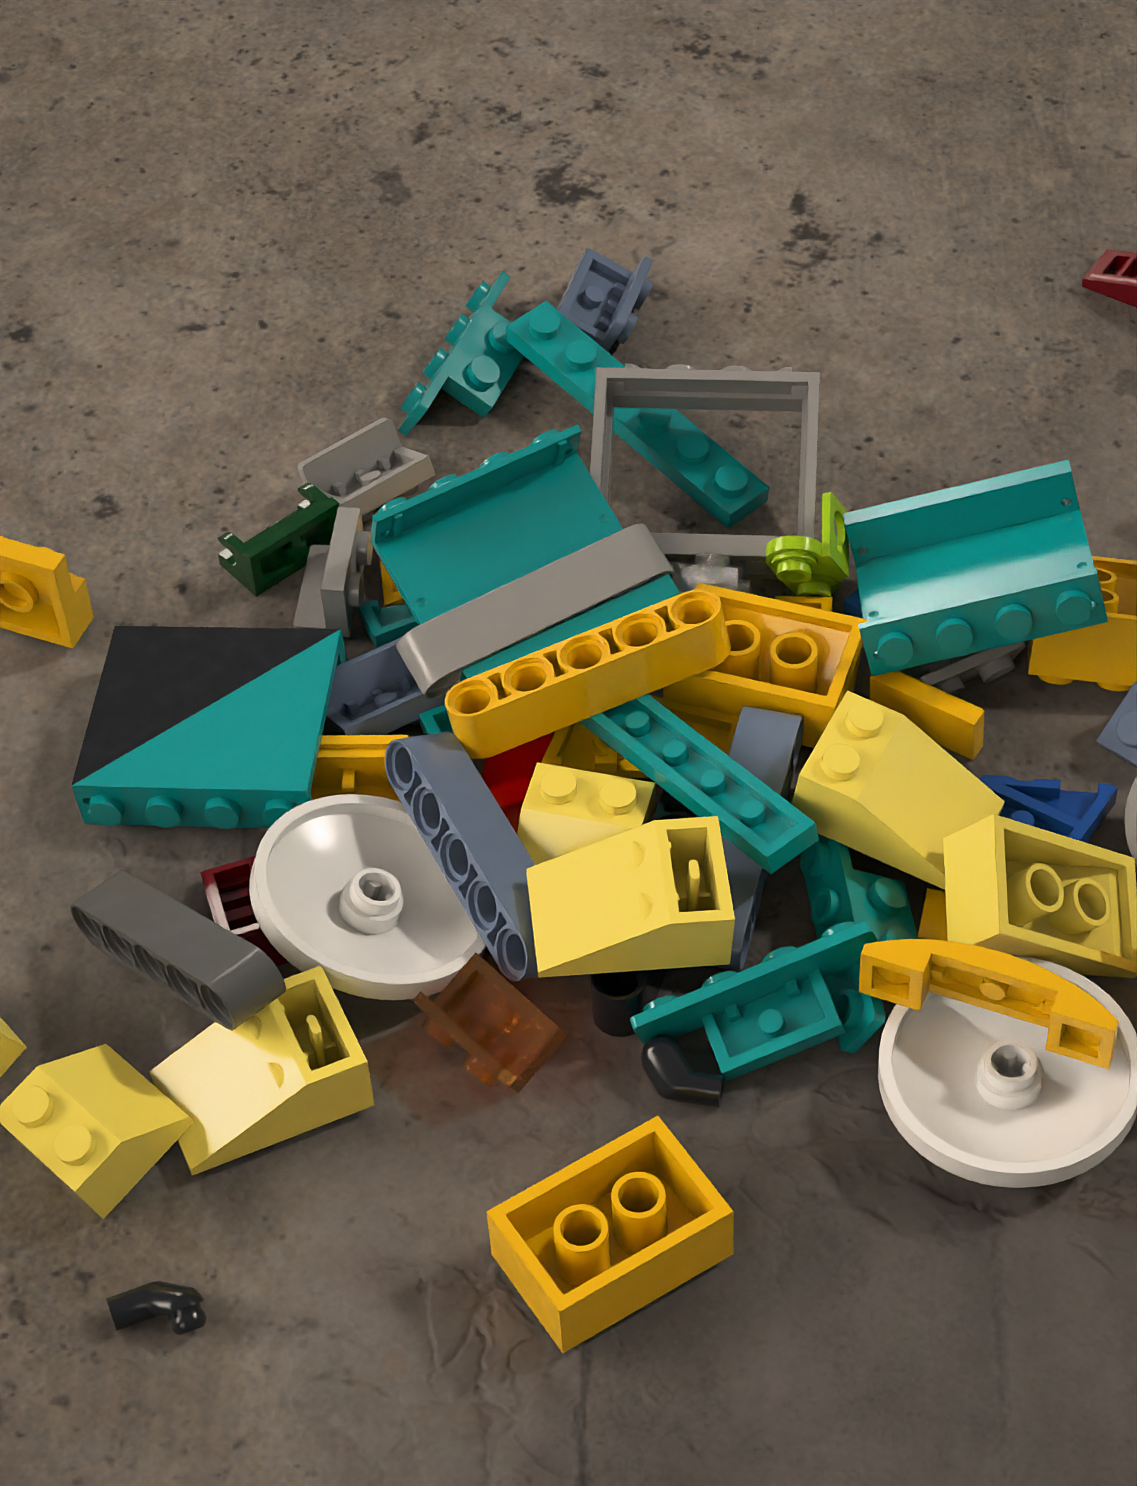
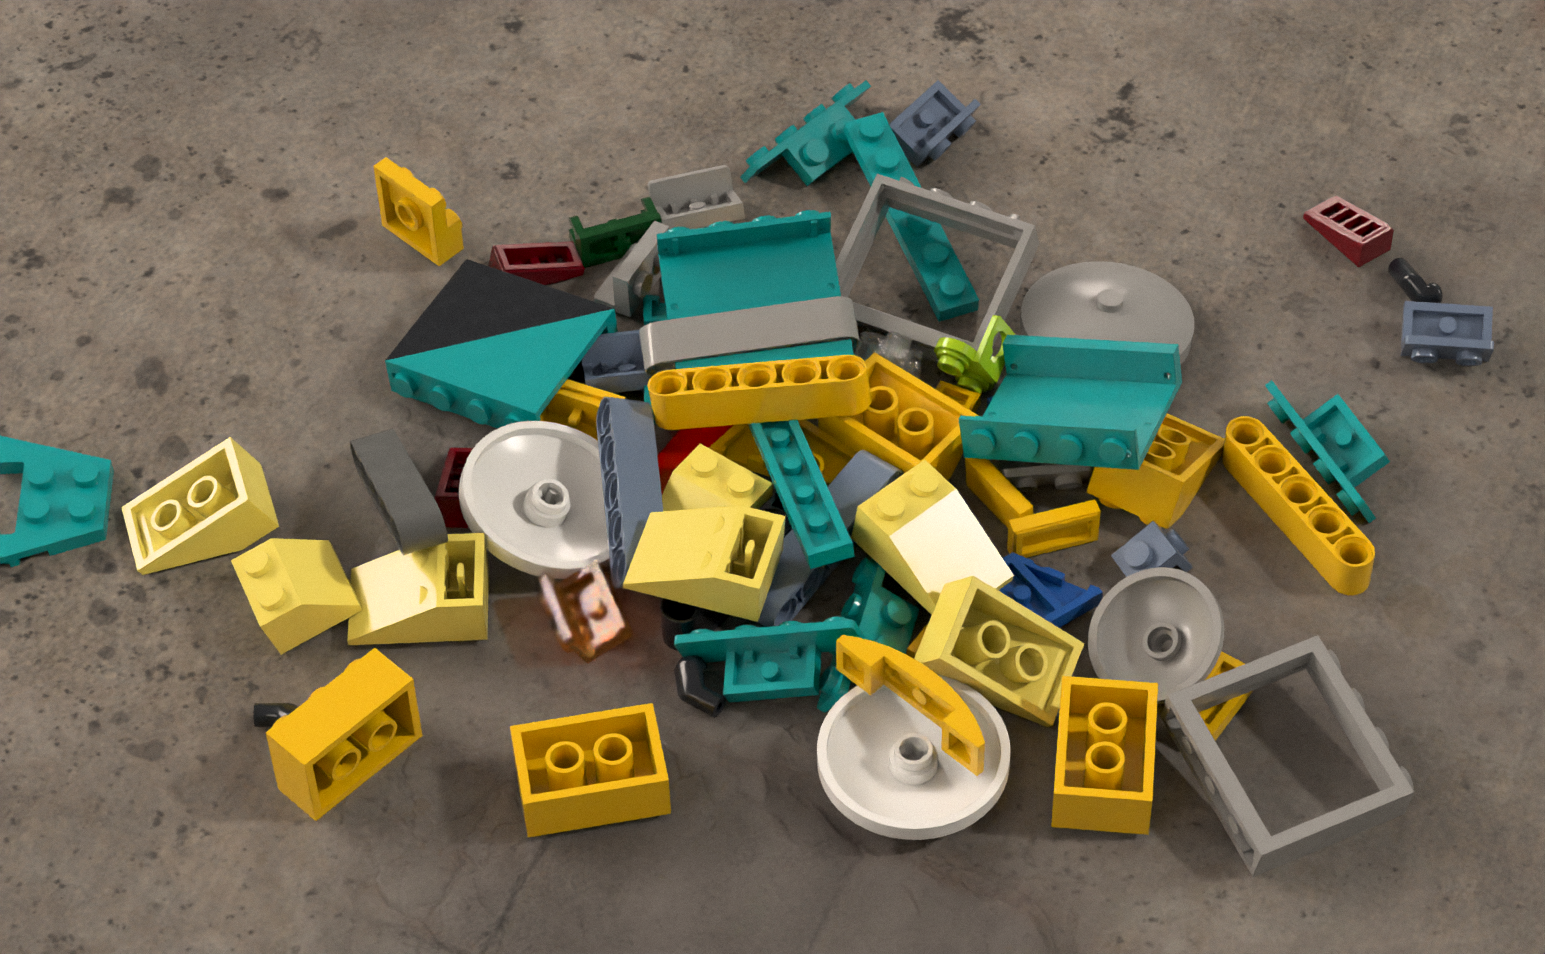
camera: 20 degrees right, 0 degrees up
(182, 603) = (526, 260): none -> dark red slope
(258, 1299) = (344, 733): none -> yellow brick
(924, 447) = (1108, 304): none -> light grey dish
(1016, 730) = (1054, 529): none -> yellow tile

